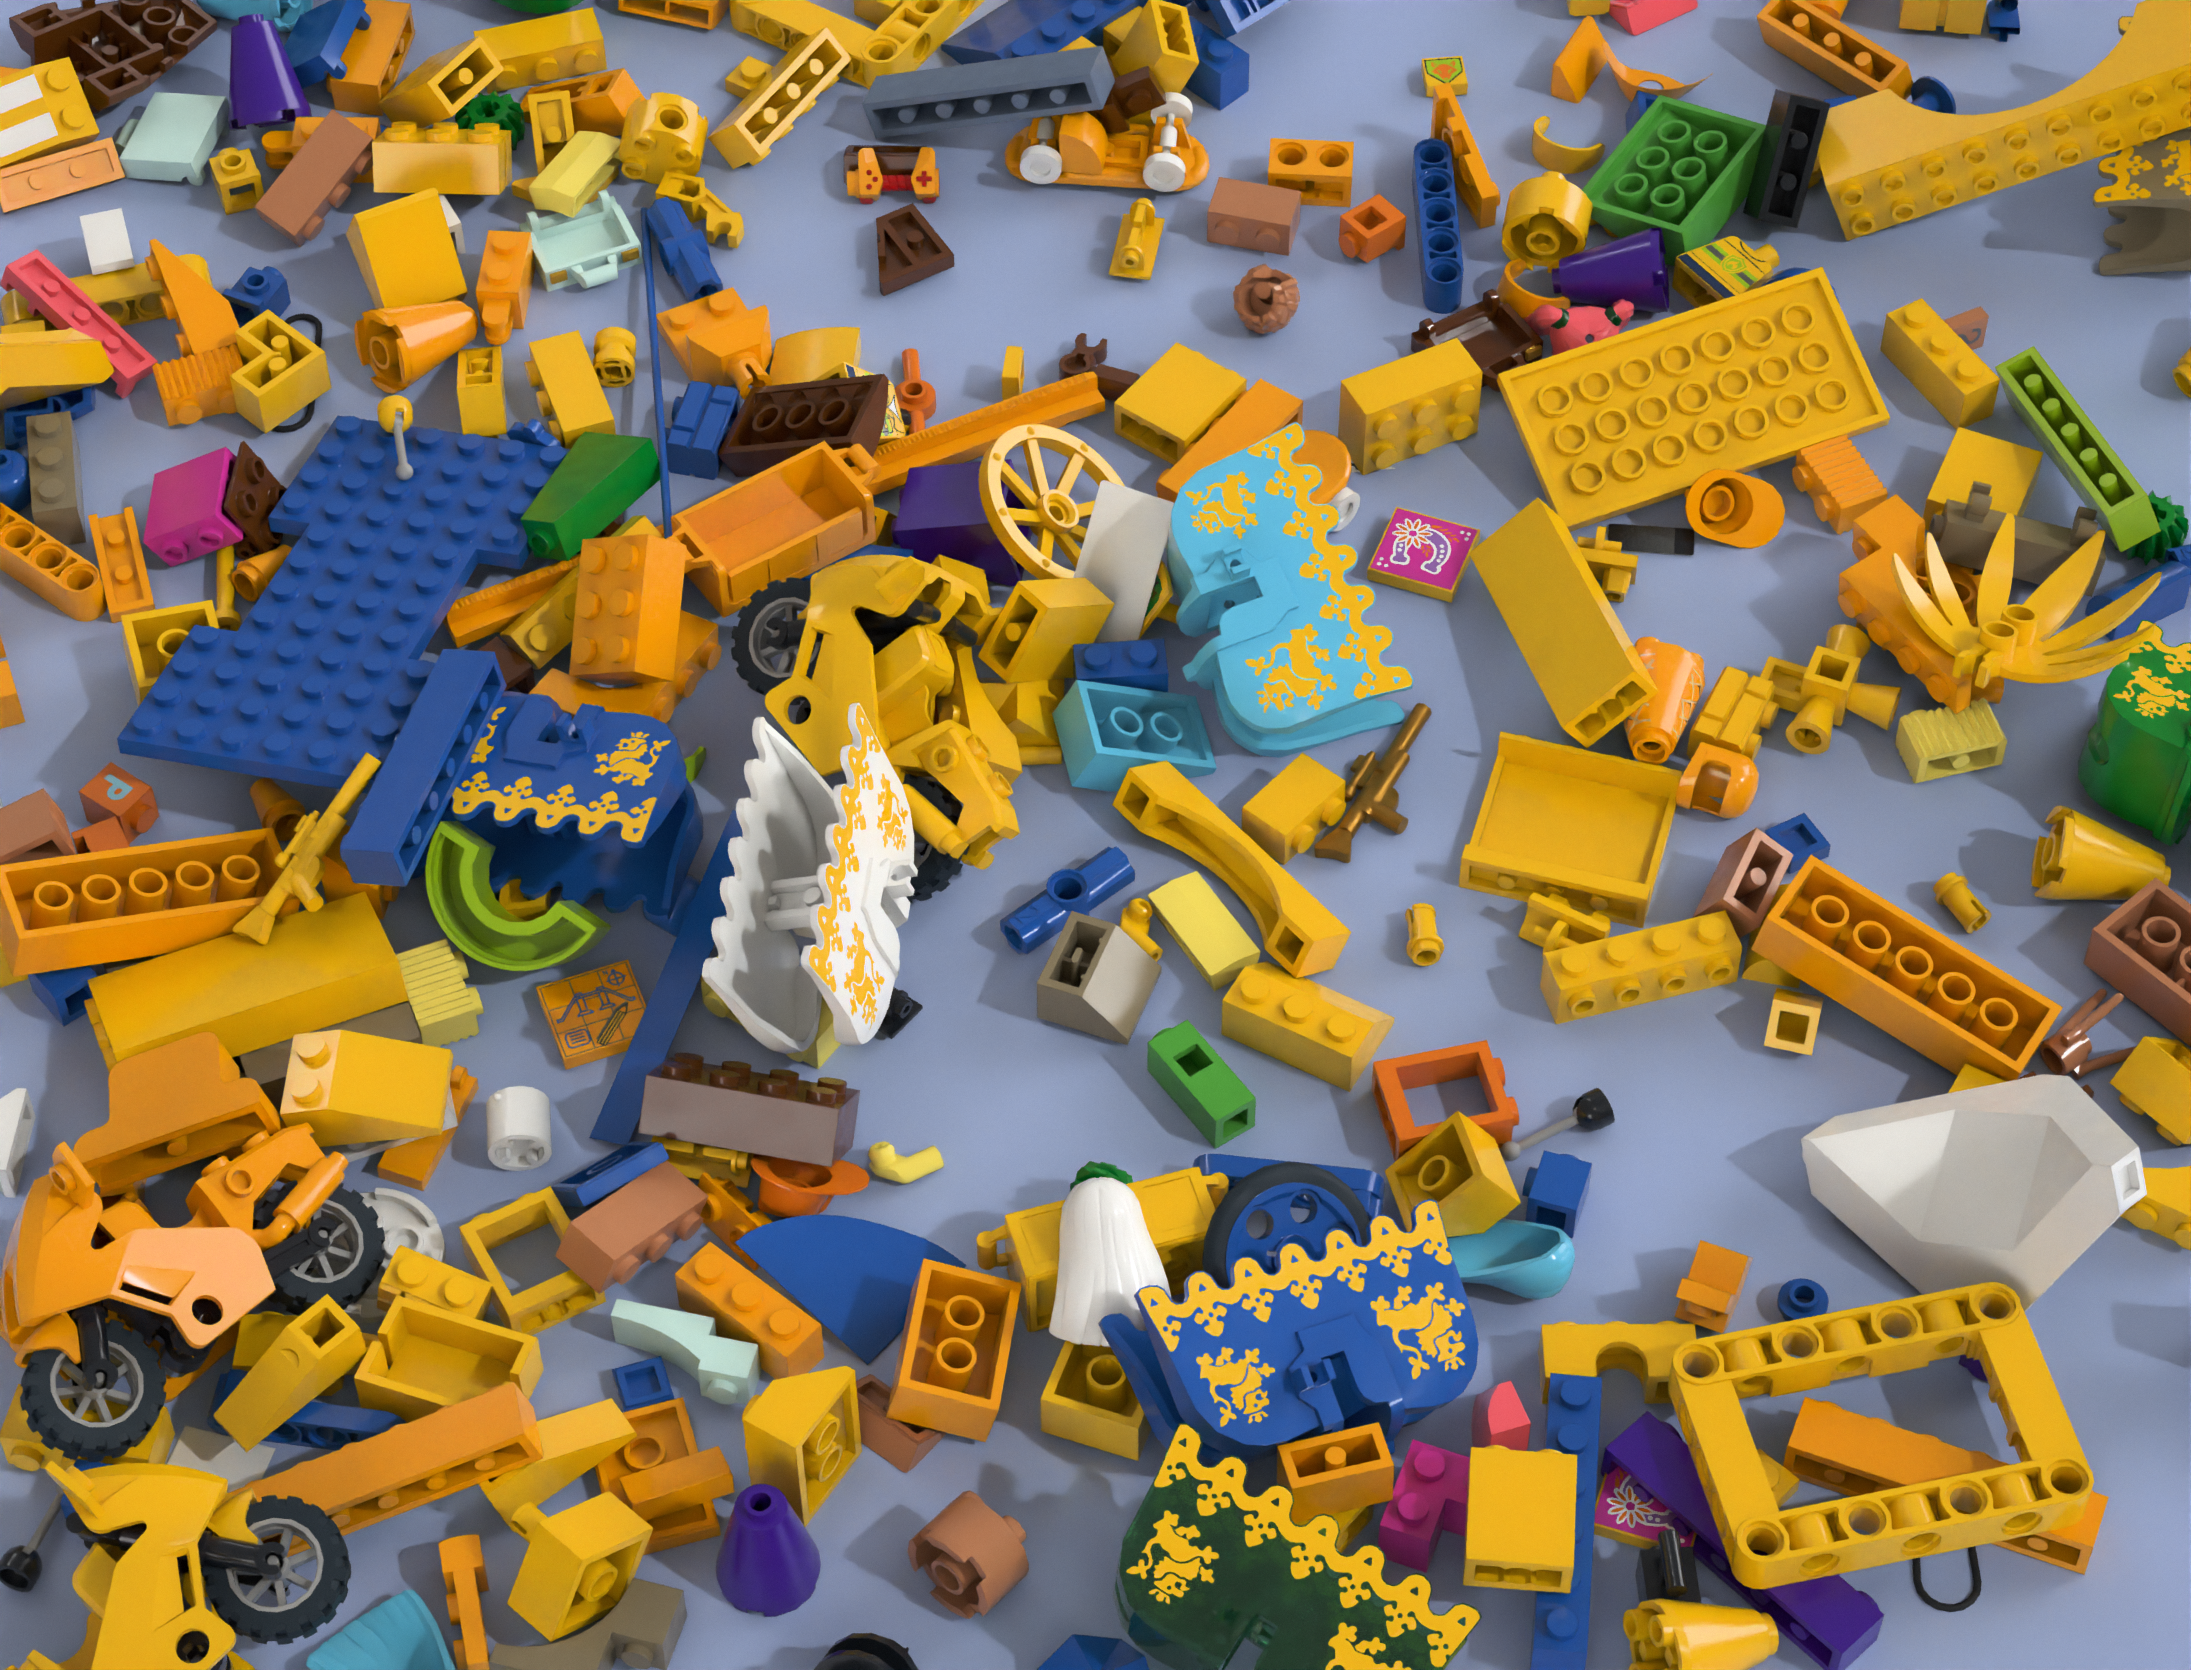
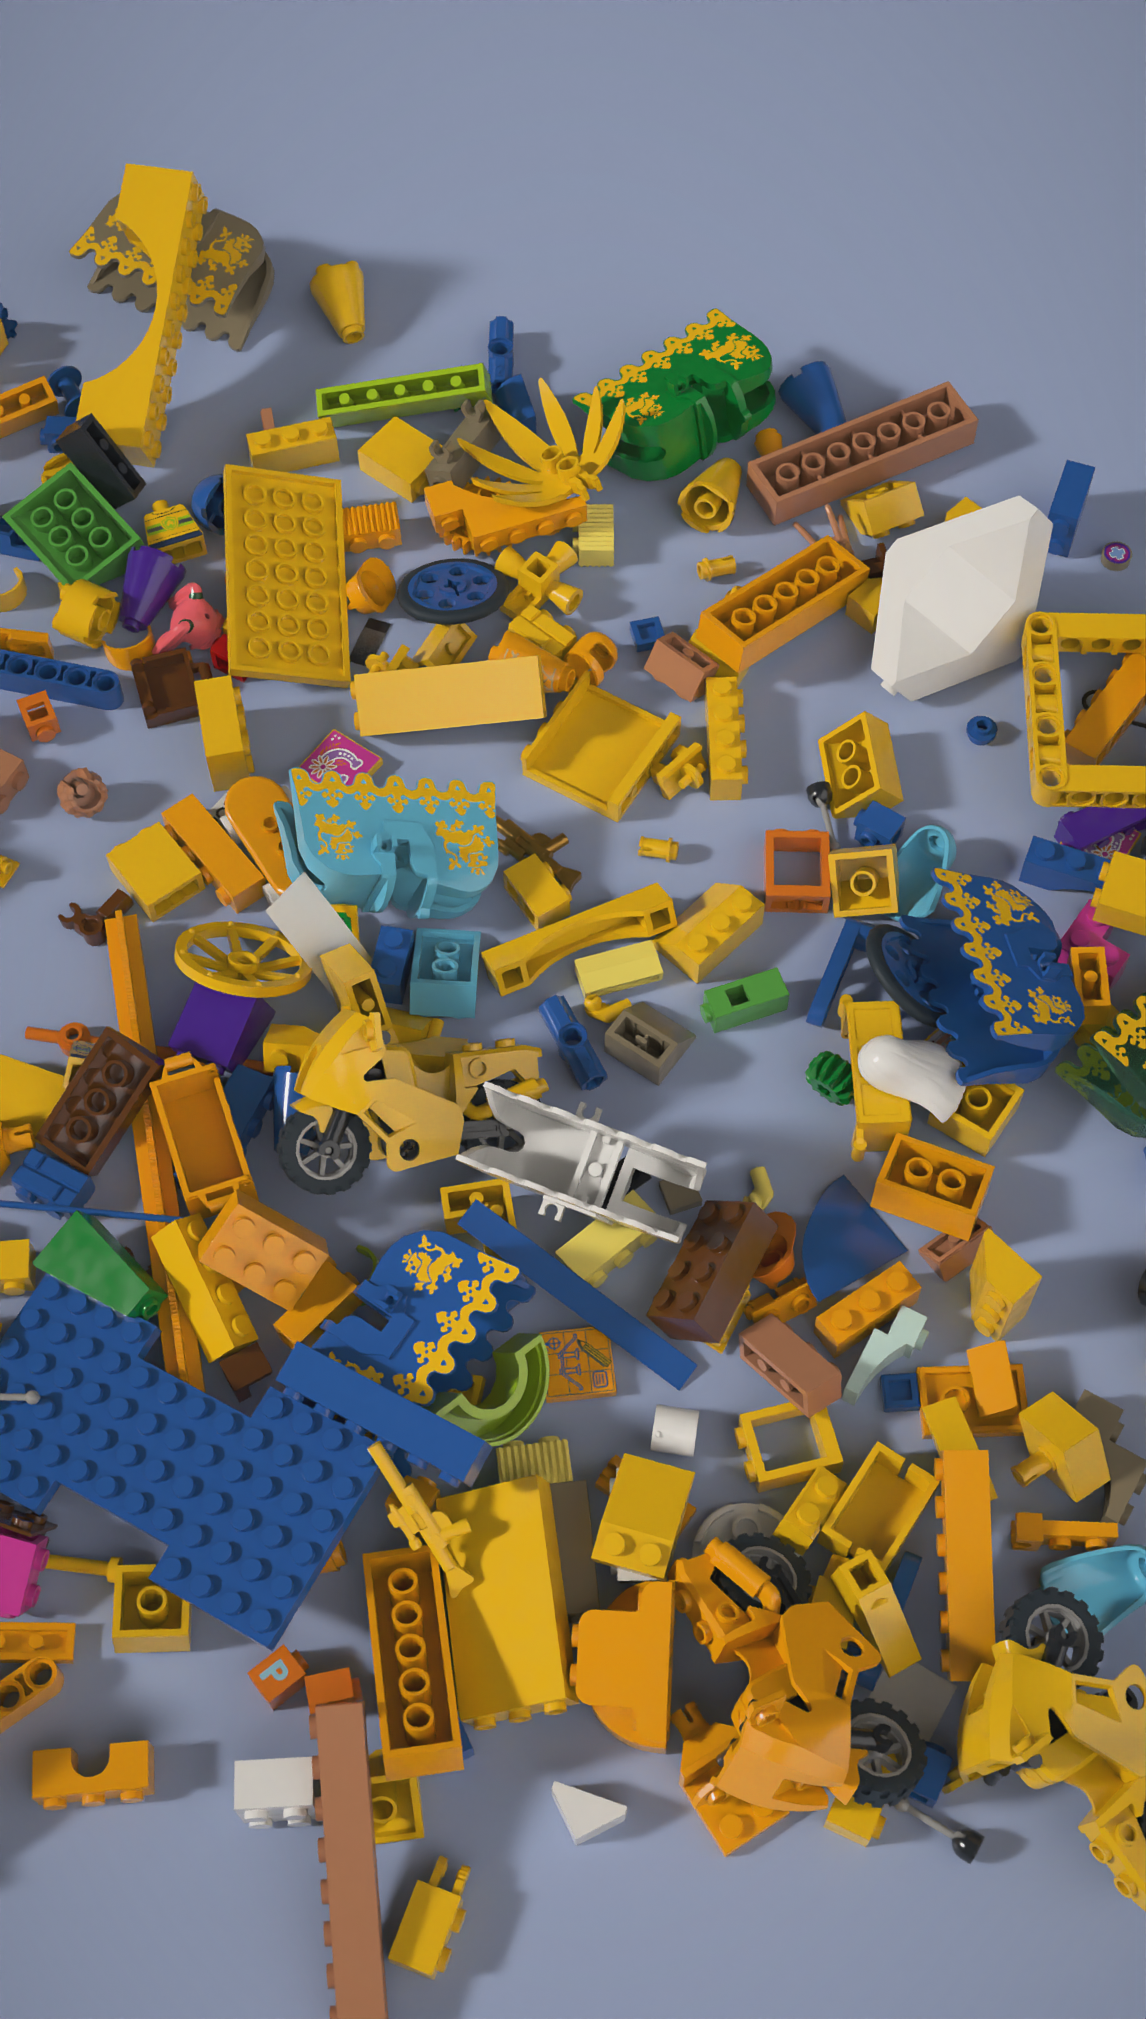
camera: 75 degrees left, 10 degrees up
(256, 572) = (75, 1532): light orange cone -> none
(532, 433) = (16, 1302): blue piece -> none
(609, 1173) = (736, 1374): blue tile -> none
(766, 1554) = (1056, 1337): dark purple cone -> none
(877, 1075) = (678, 1197): none -> dark tan tile
(970, 1555) = (1087, 1211): nougat brick -> none
(1013, 372) = (84, 968): yellow tile -> none
(1500, 1419) = (1057, 897): coral slope -> none
(1593, 1348) = (1004, 853): yellow arch -> none
(1662, 1153) = (860, 766): none -> yellow slope
(1668, 618) = (445, 645): none -> yellow panel
(1712, 1286) = (966, 769): light orange brick -> none
(1761, 595) = (453, 591): none -> wedge
(1793, 1021) = (781, 674): yellow brick -> none

